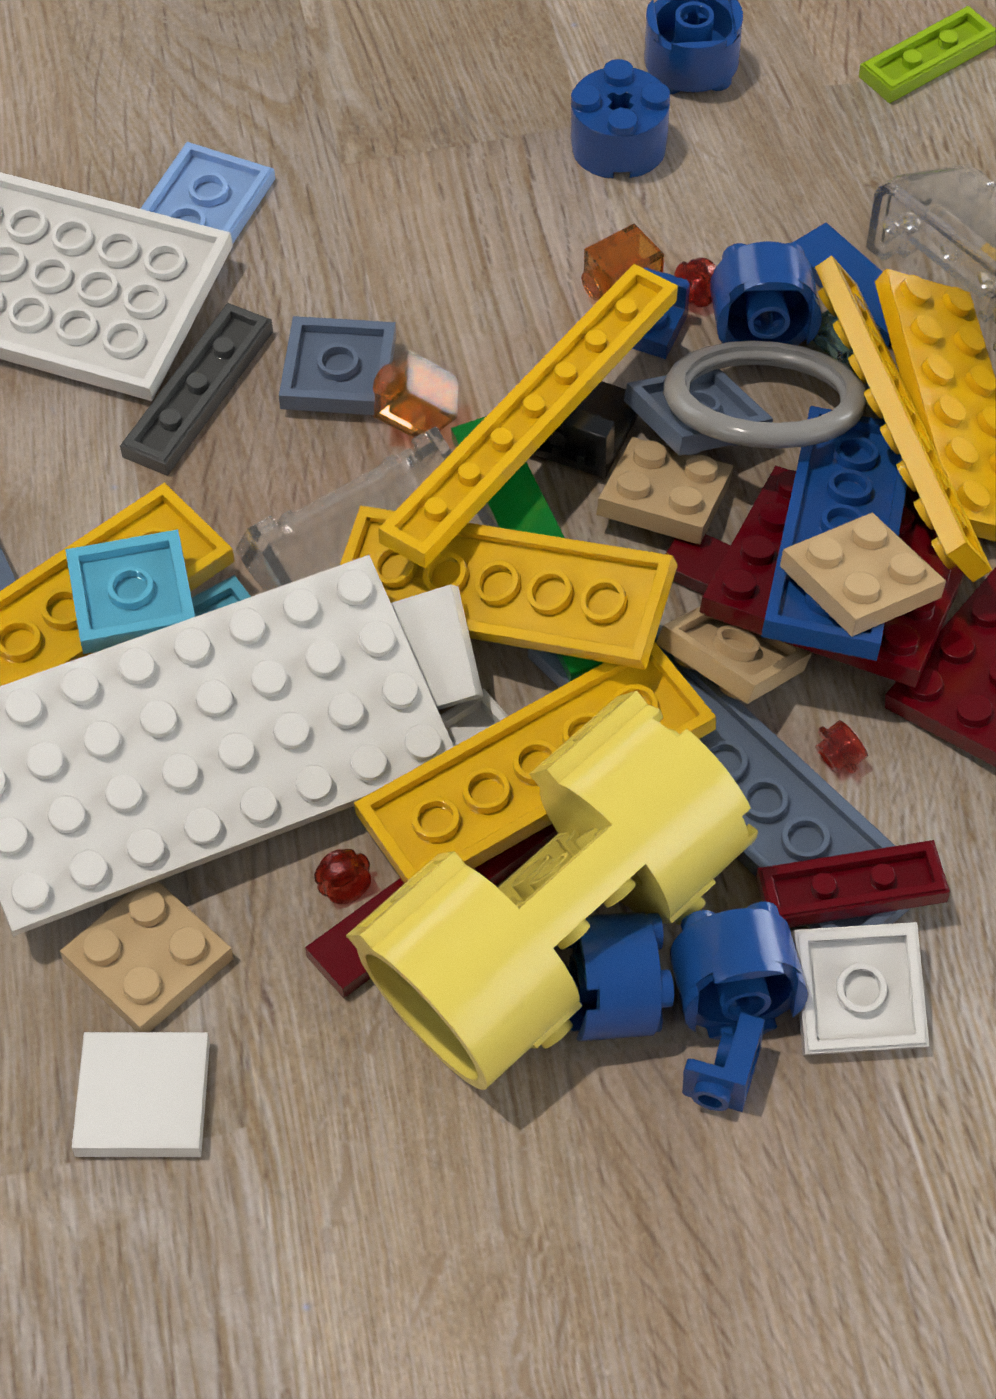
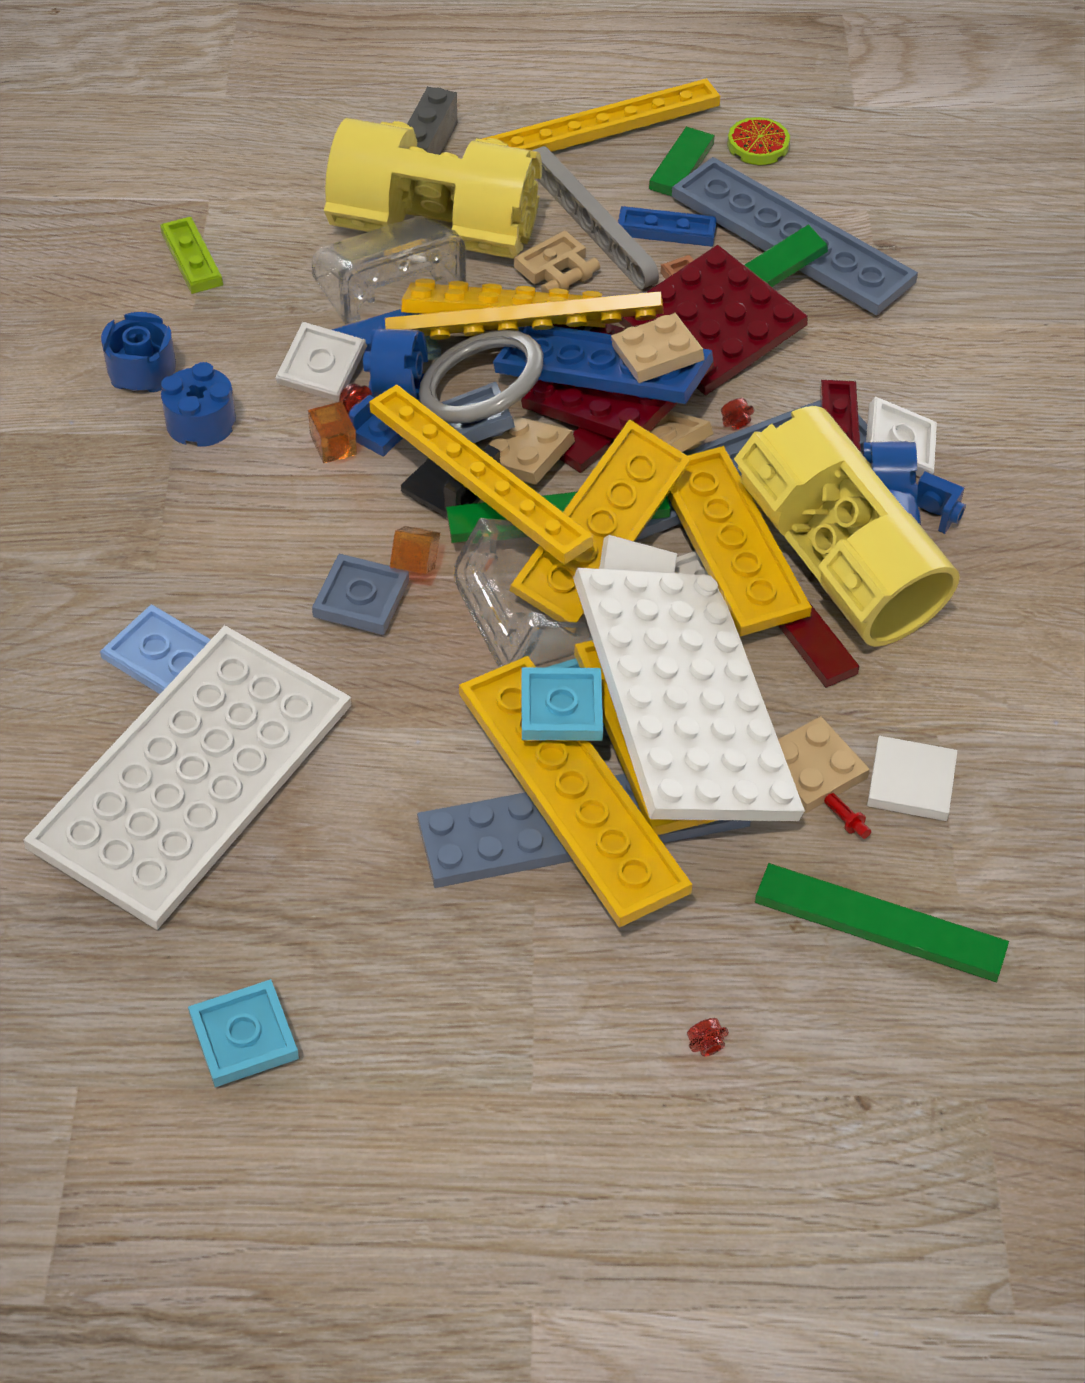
camera: 80 degrees left, 5 degrees down
(42, 1020) = (853, 821): none -> red piece
(196, 389) = (367, 690): dark grey tile -> none
(343, 876) = (778, 654): clear red plate -> none
(761, 215) = (321, 361): none -> white tile

